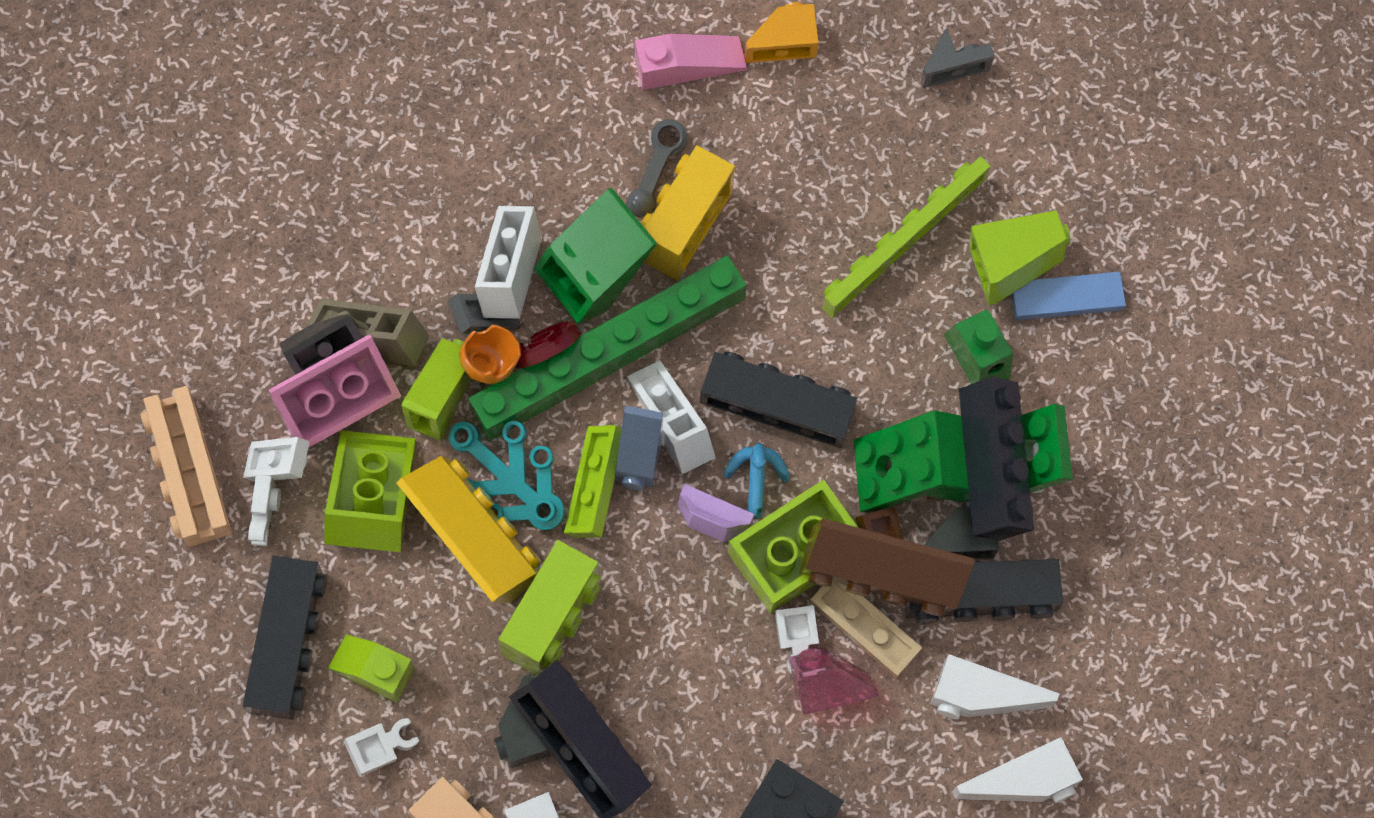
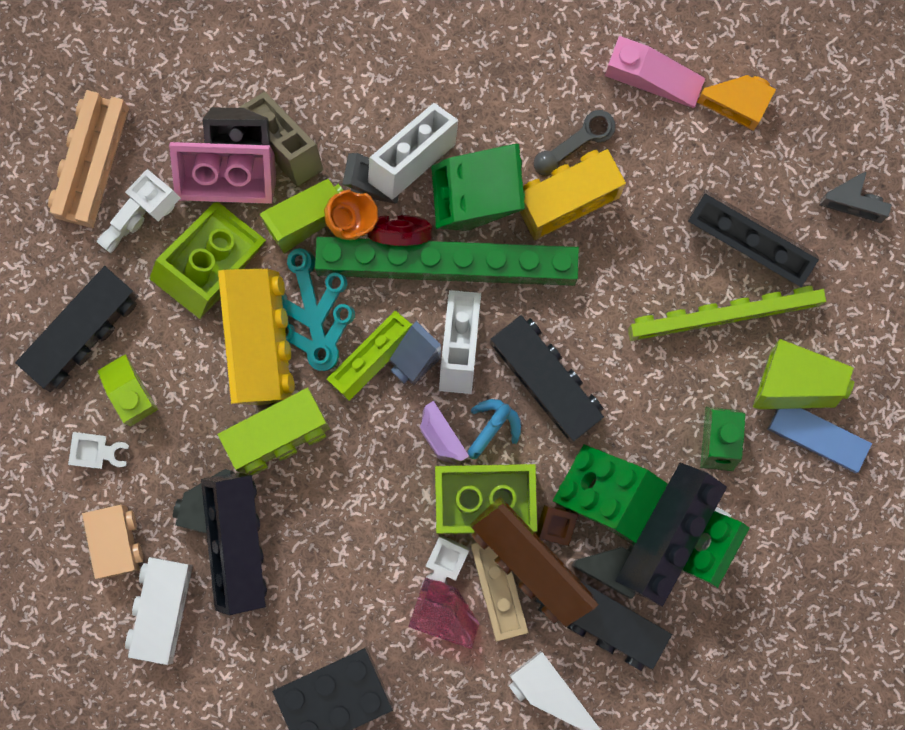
camera: 35 degrees right, 10 degrees up
(883, 150) = (753, 238): none -> black brick

